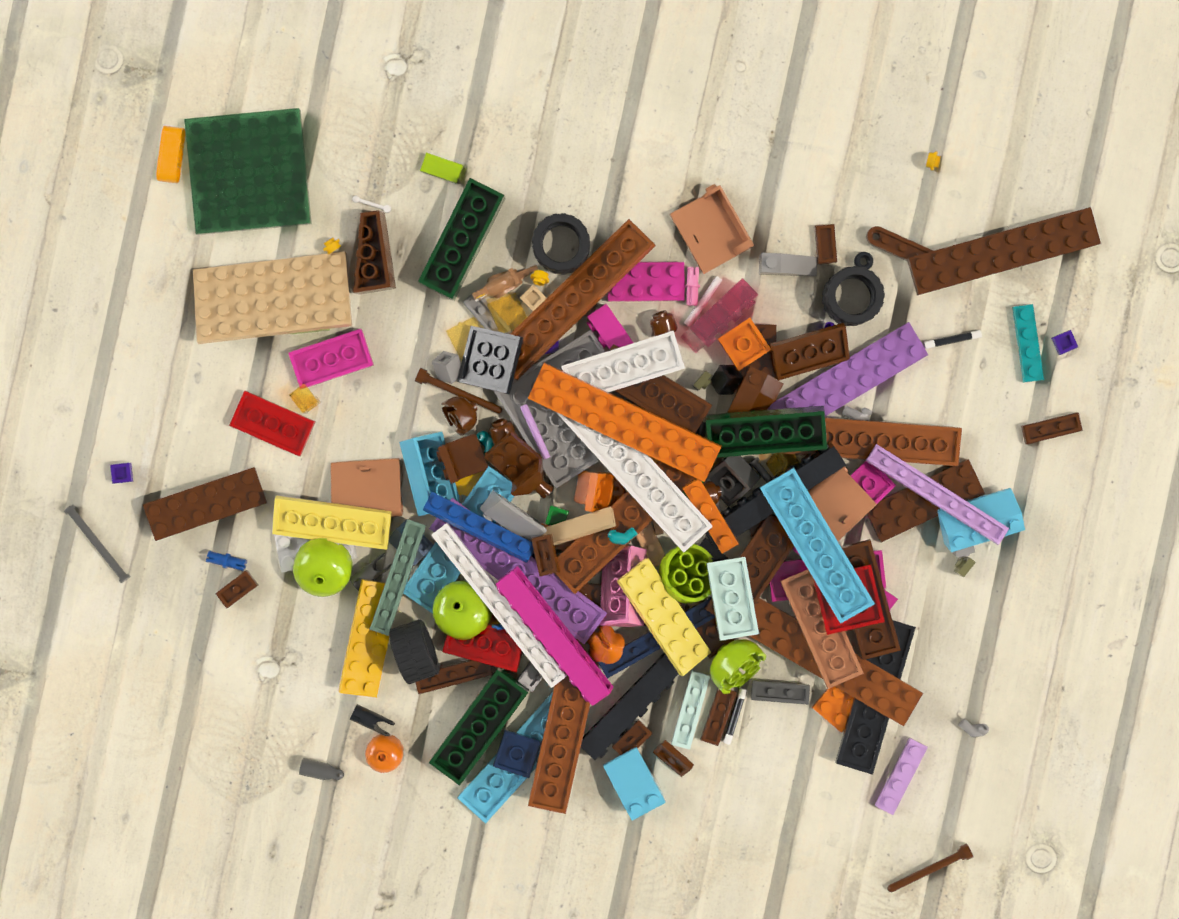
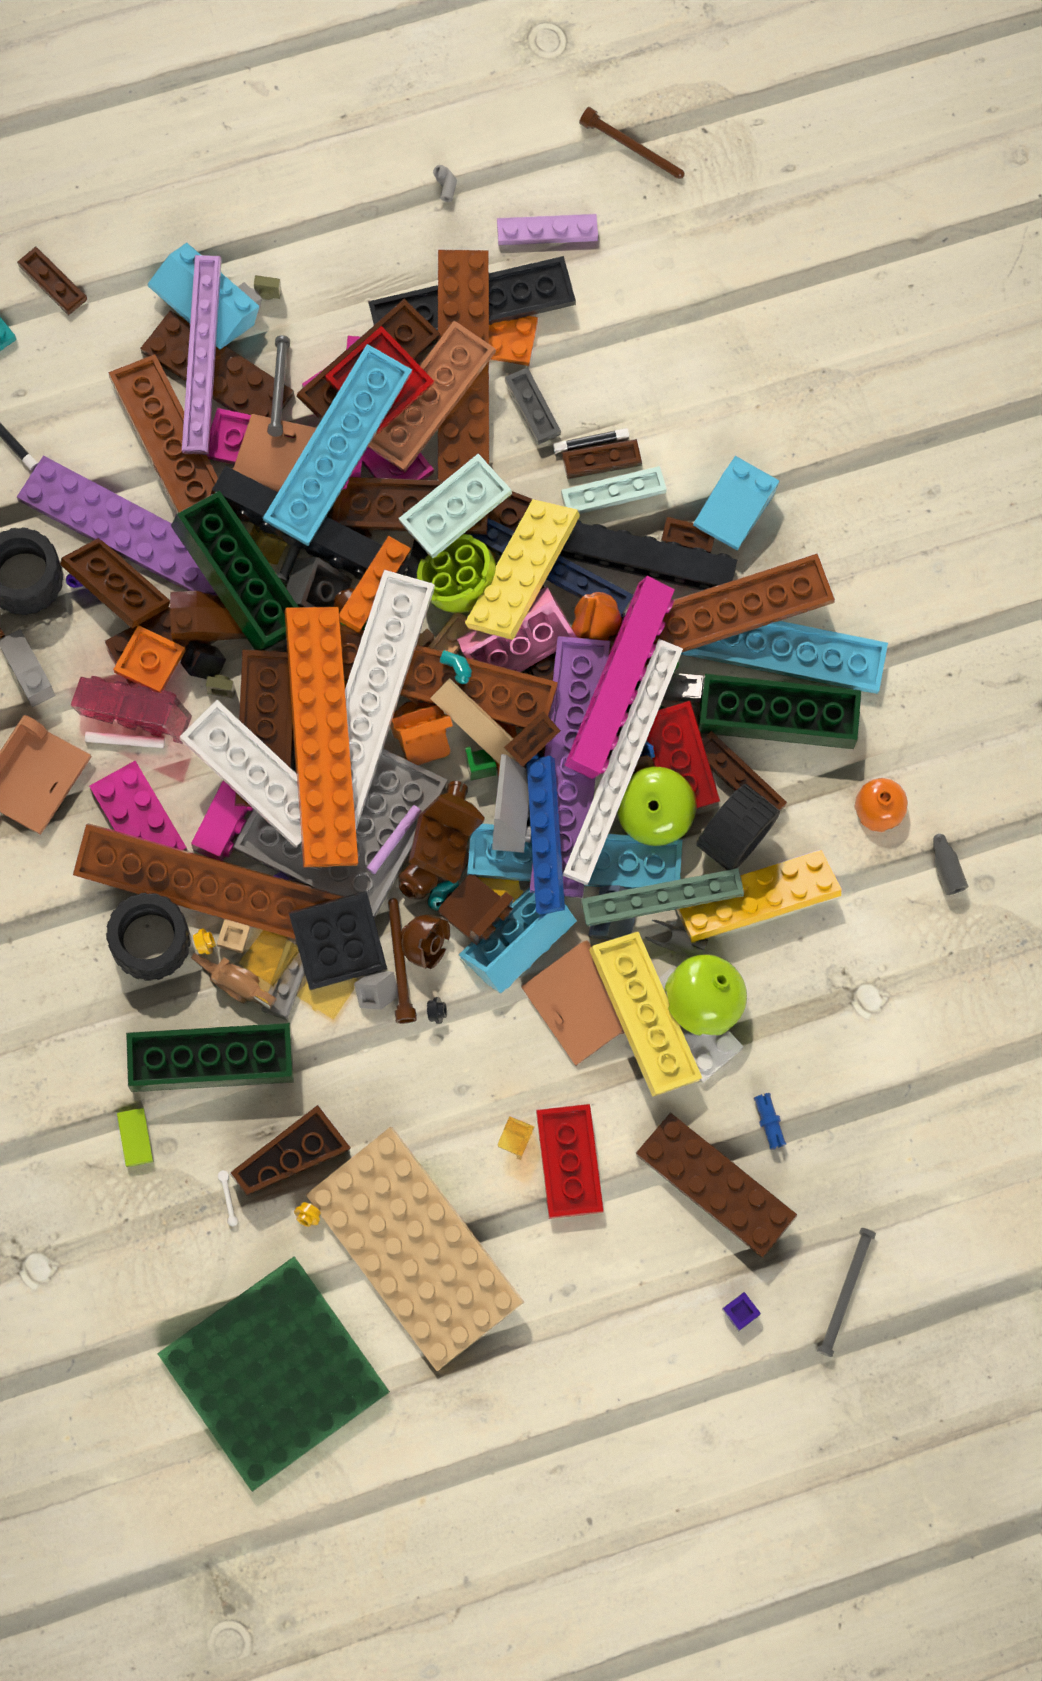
camera: 125 degrees left, 15 degrees down
(170, 154) = (306, 1483): light orange beam -> none
(237, 589) = (796, 1087): reddish brown plate -> none
(331, 358) = (448, 1135): dark pink plate -> none
(369, 719) = (852, 843): black piece -> none
(413, 396) = (436, 1010): none -> black plate
(517, 753) = (784, 651): dark blue tile -> none
(663, 323) = (179, 766): reddish brown head -> none
(673, 758) = (681, 479): reddish brown plate -> none
(692, 286) = (113, 760): bright pink axle -> none
(728, 660) = (529, 468): lime cylinder -> none
(856, 415) = (161, 496): light grey arm -> none
(918, 553) = (275, 428): none -> dark grey bar

